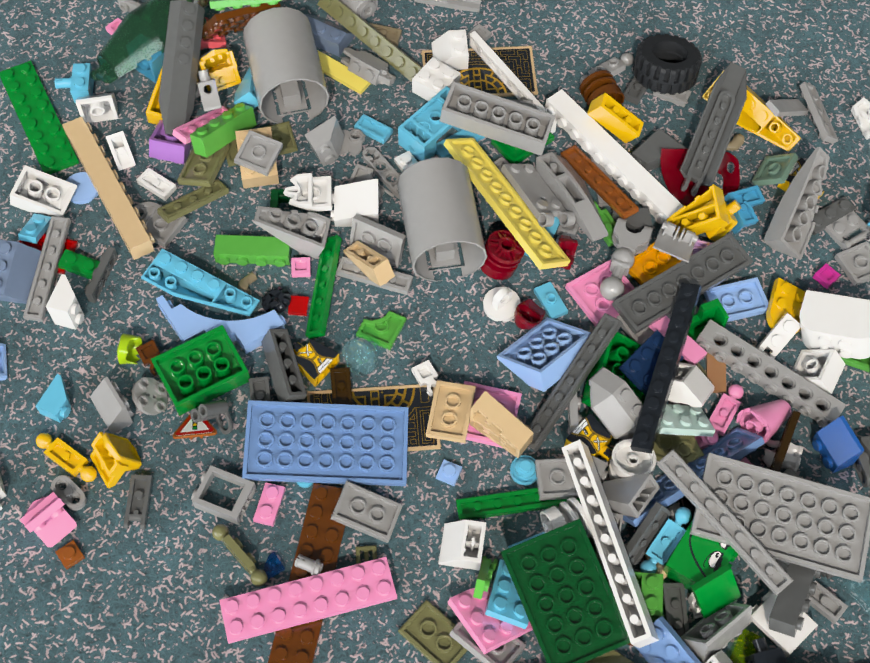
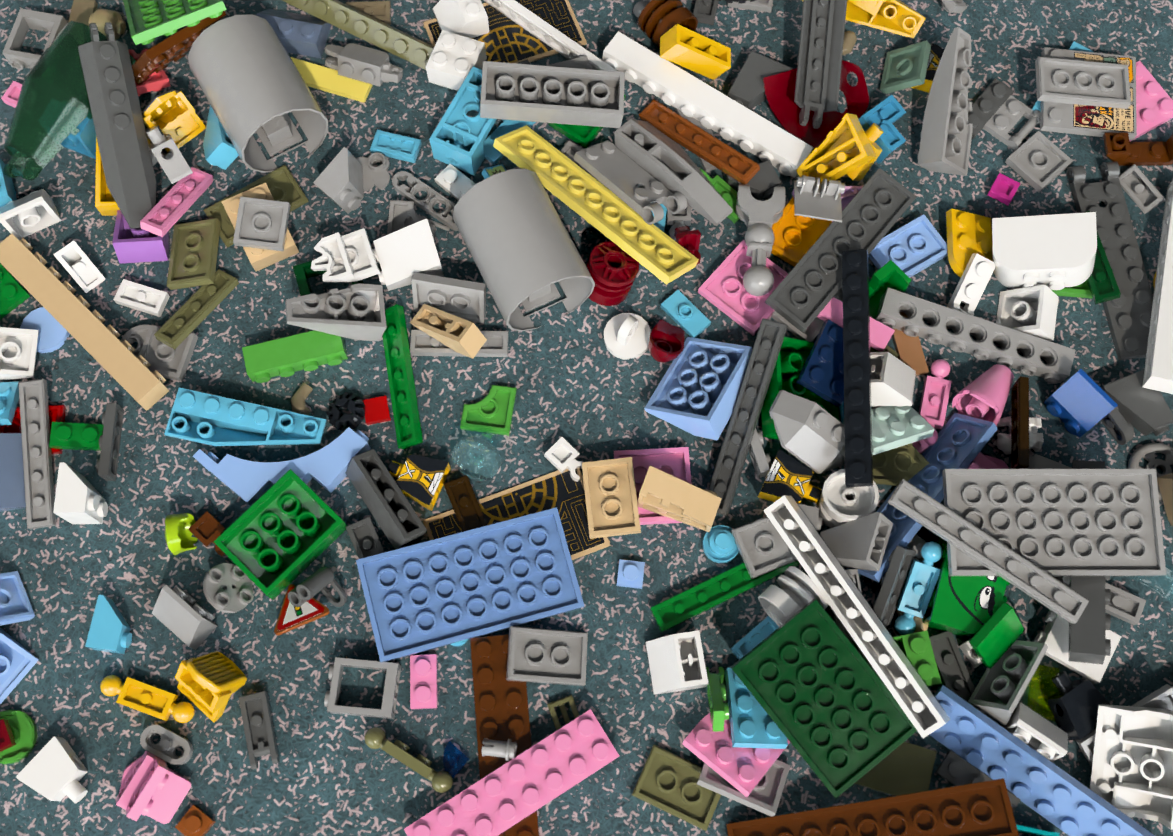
camera: 15 degrees left, 10 degrees up
(222, 129) = (203, 202): bright green brick -> none
(301, 267) = (363, 358): bright pink plate -> none

